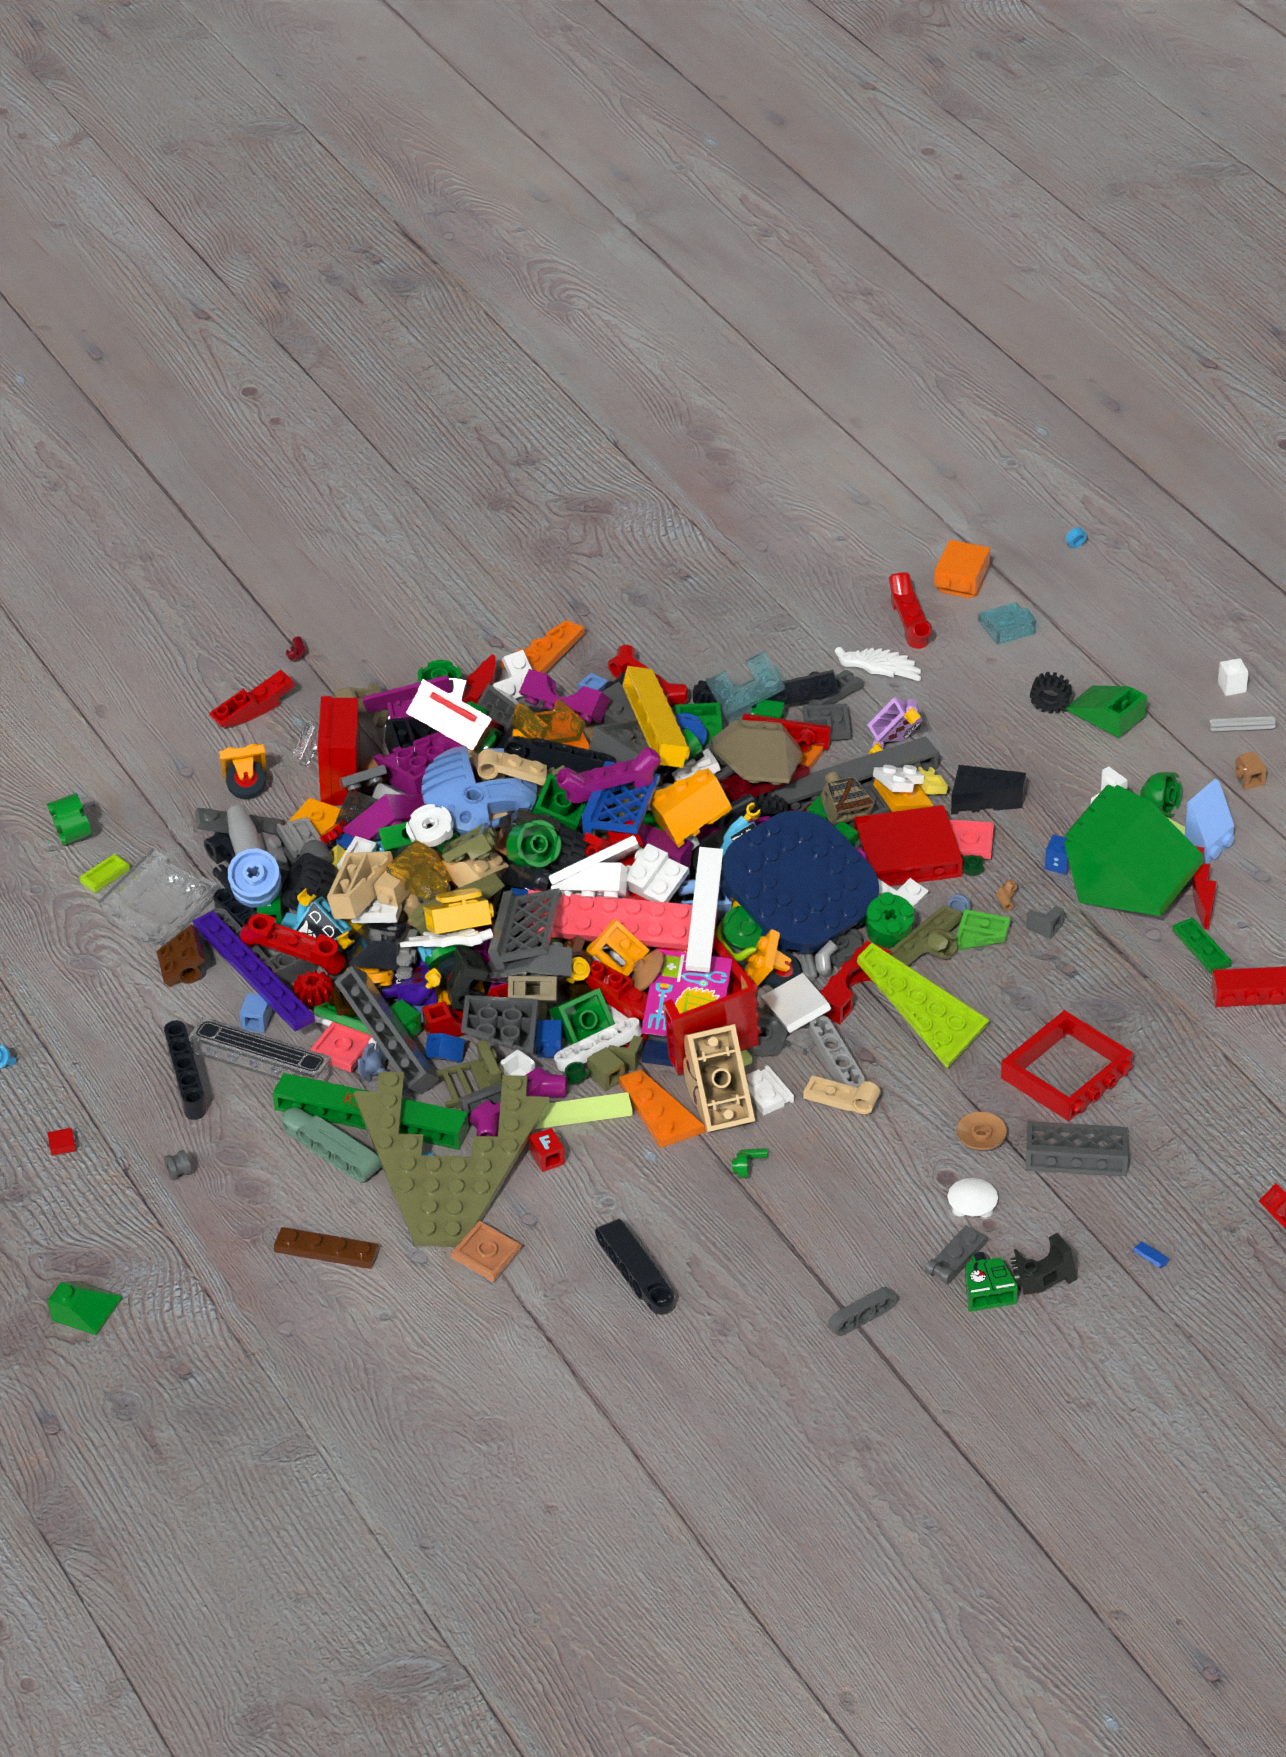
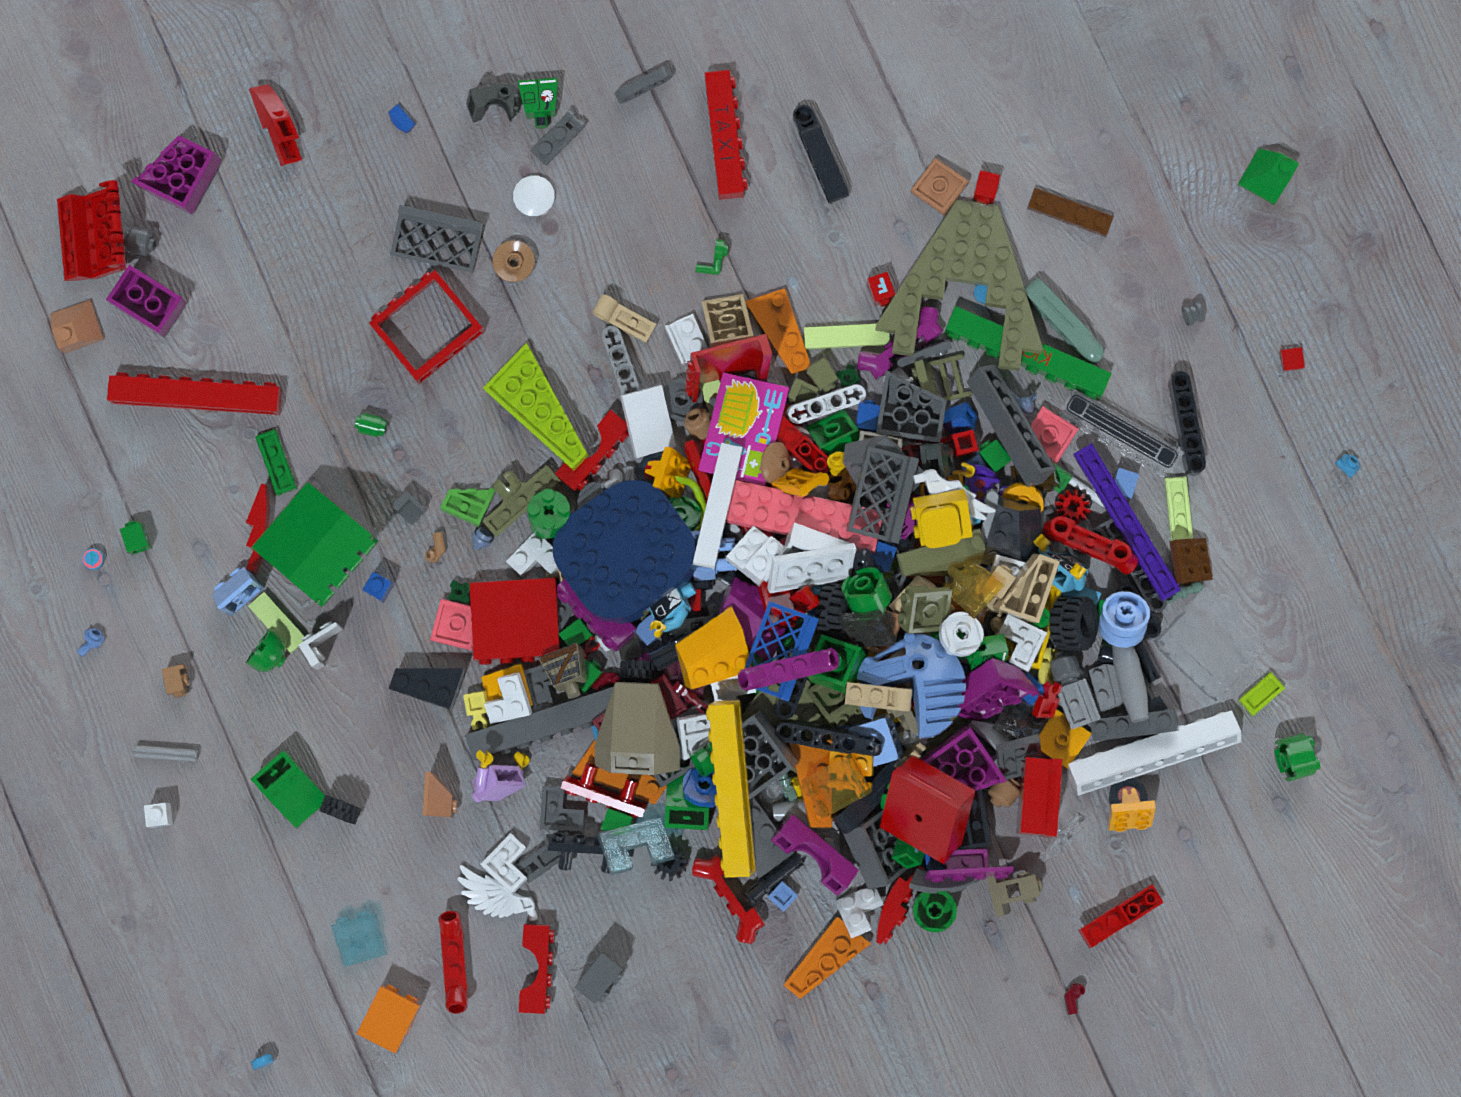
camera: 175 degrees left, 40 degrees up
(180, 822) = (1154, 752): none -> white brick
(192, 1001) = (1178, 508): none -> yellowish green tile
(429, 1254) = (986, 187): none -> red brick
(754, 1273) = (724, 134): none -> red brick
(764, 608) = (599, 977): none -> dark grey brick
(825, 601) = (537, 940): none -> red arch
(878, 677) = (500, 863): none -> white plate
(954, 710) = (437, 798): none -> nougat slope
(1106, 980) = (371, 425): none -> green brick

